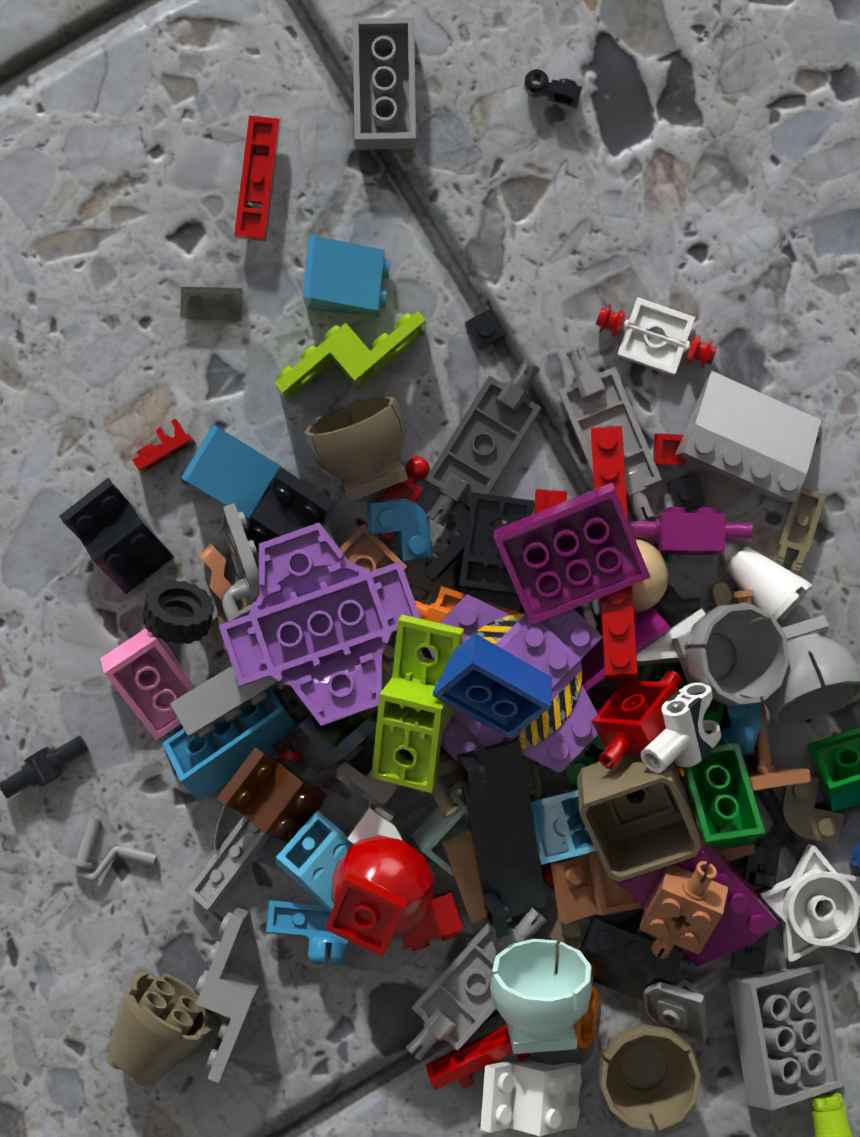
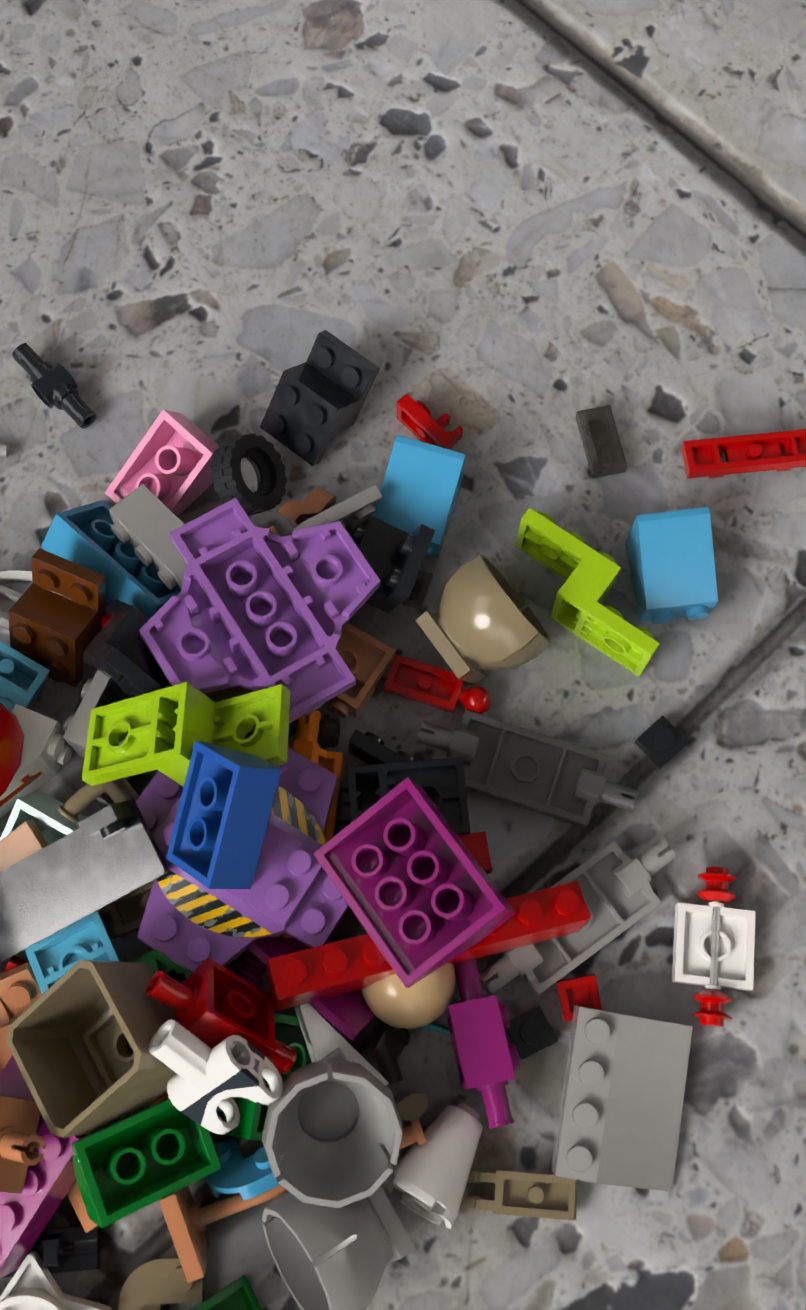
camera: 75 degrees right, 15 degrees down
(408, 521) = (413, 697): dark azure plate -> none

